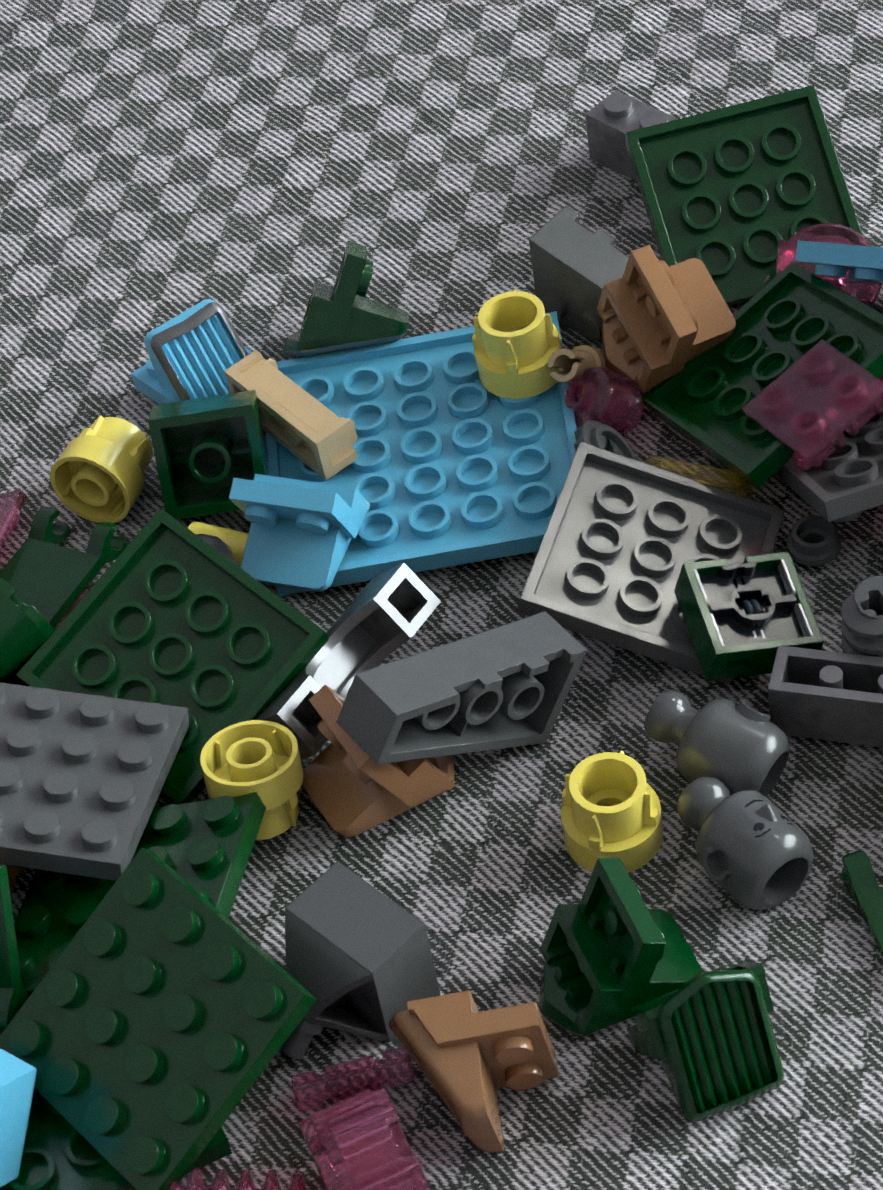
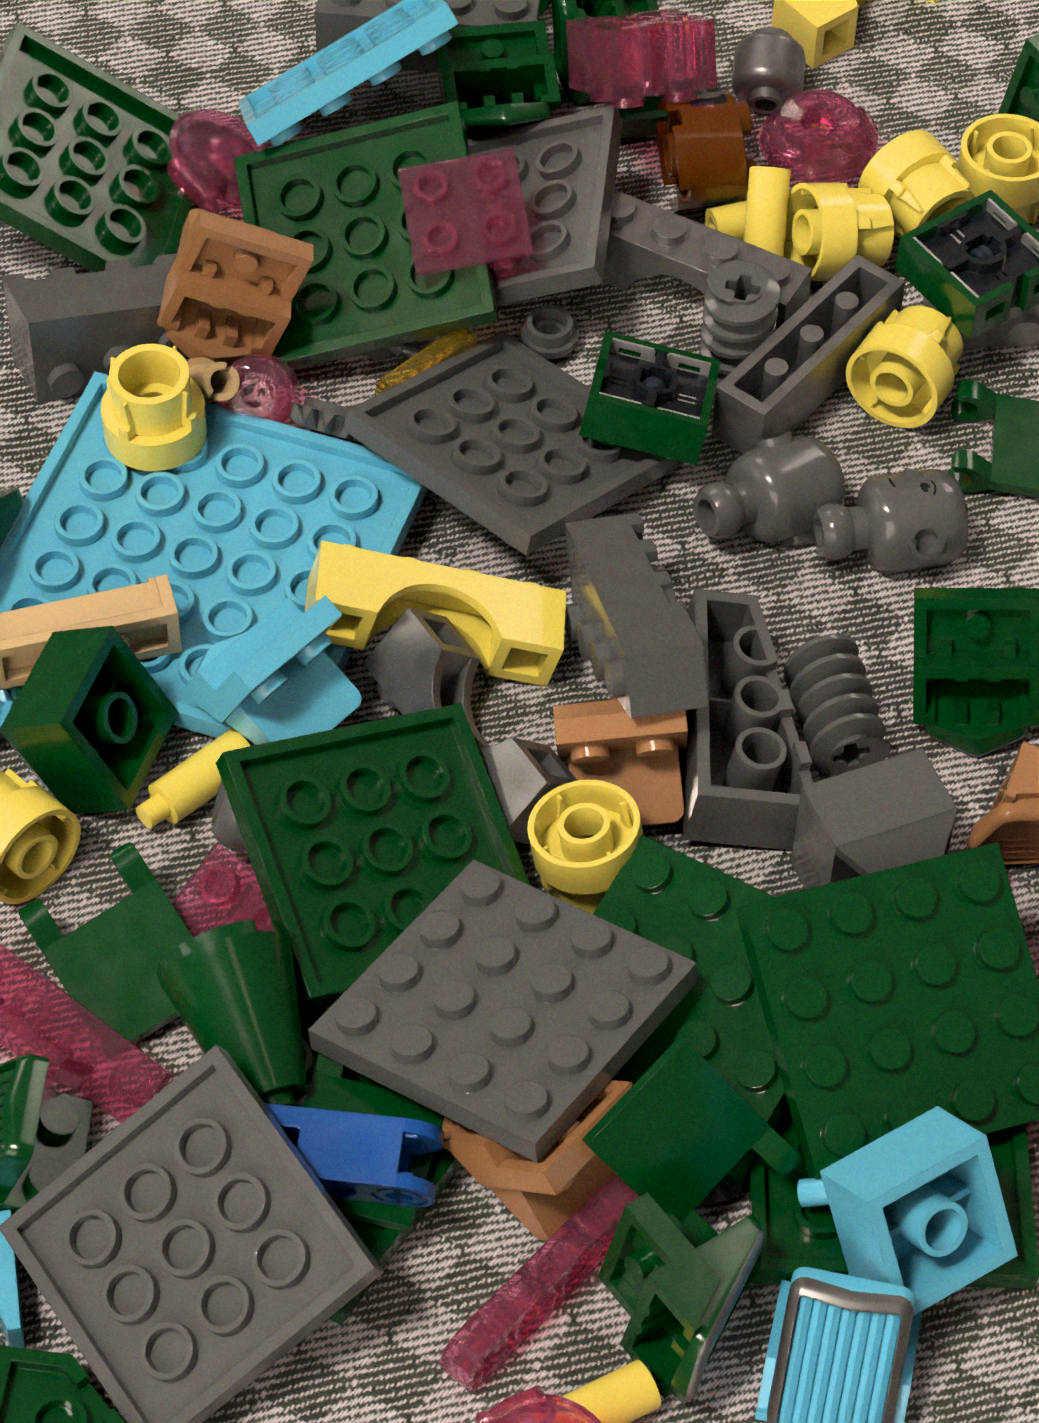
camera: 75 degrees left, 5 degrees up
(412, 530) = (506, 622): none -> light yellow arch
(447, 817) = (742, 750): none -> dark grey wedge
(509, 876) = (835, 705): none -> dark grey piece
(610, 812) = (802, 593): light yellow piece -> none

